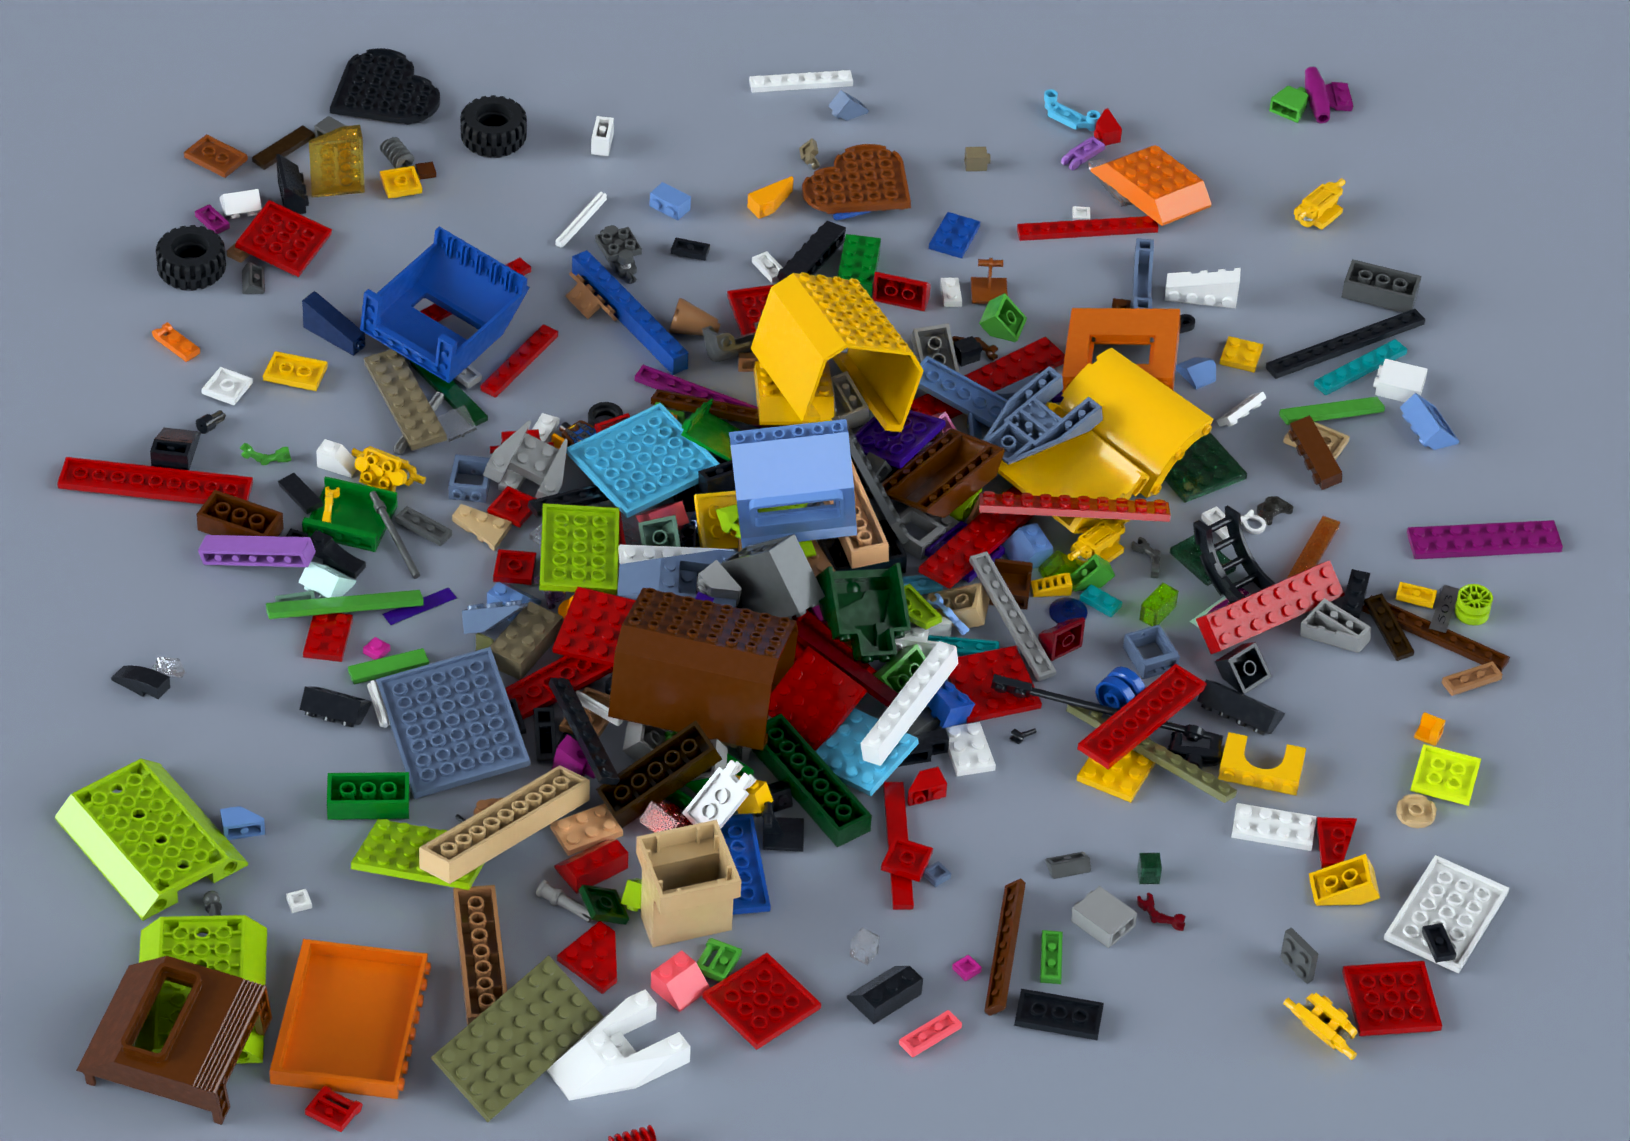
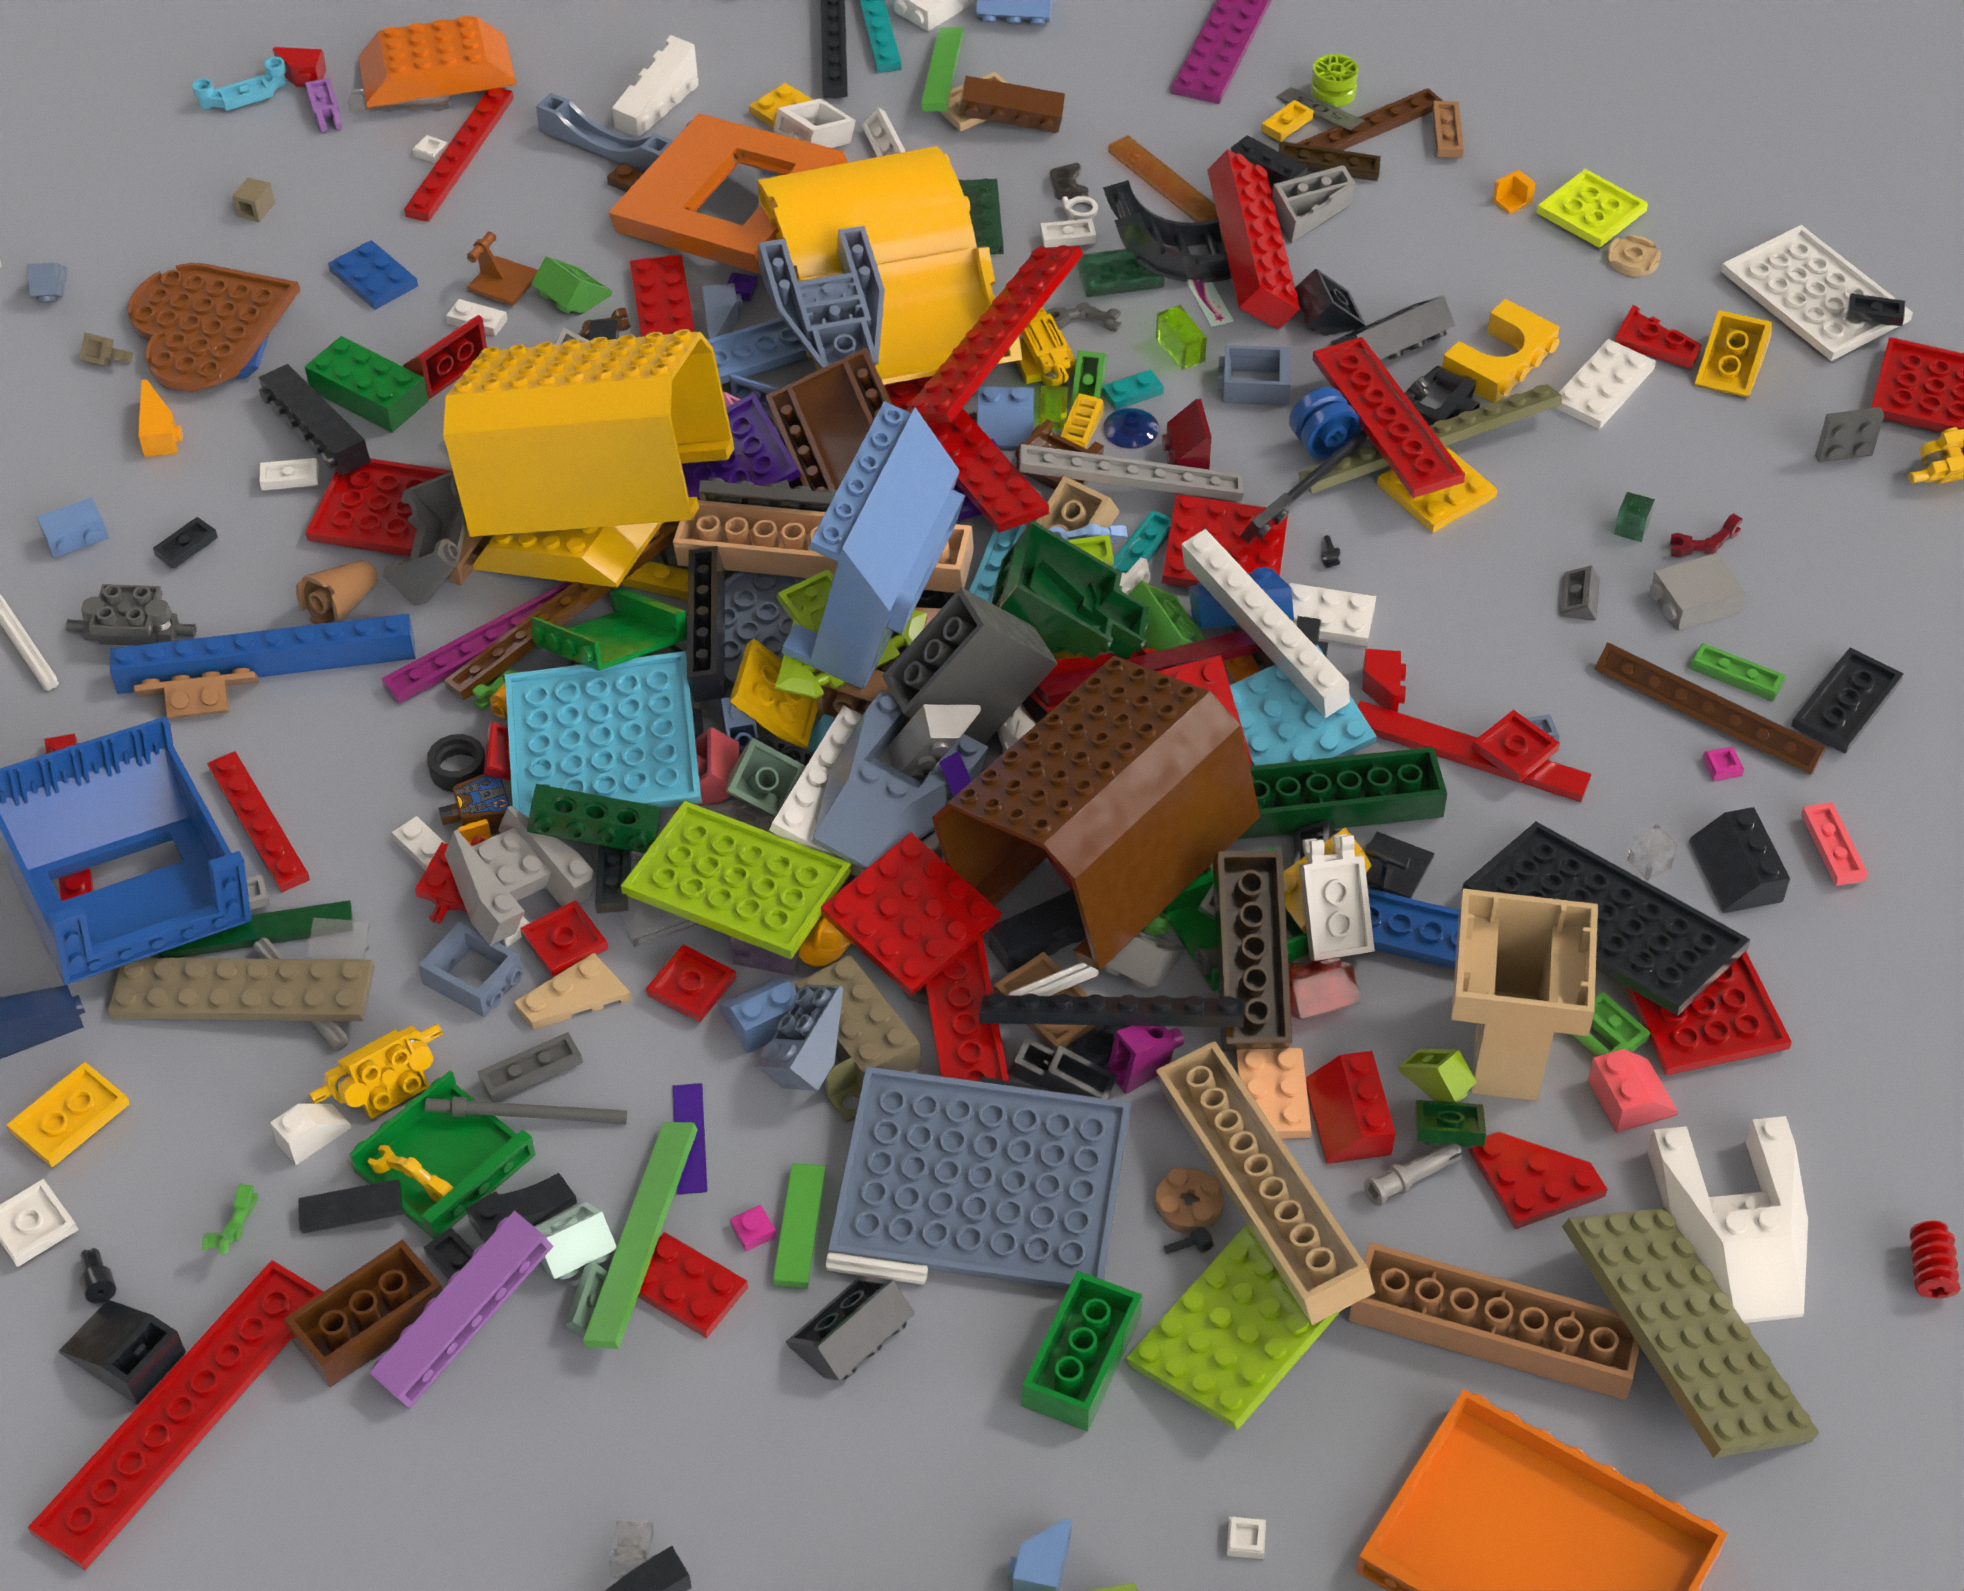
camera: 60 degrees left, 5 degrees up
(579, 473) = (593, 818): none -> dark green brick
(794, 933) = (1642, 932): none -> black plate
(1220, 379) = (833, 125): none -> white window

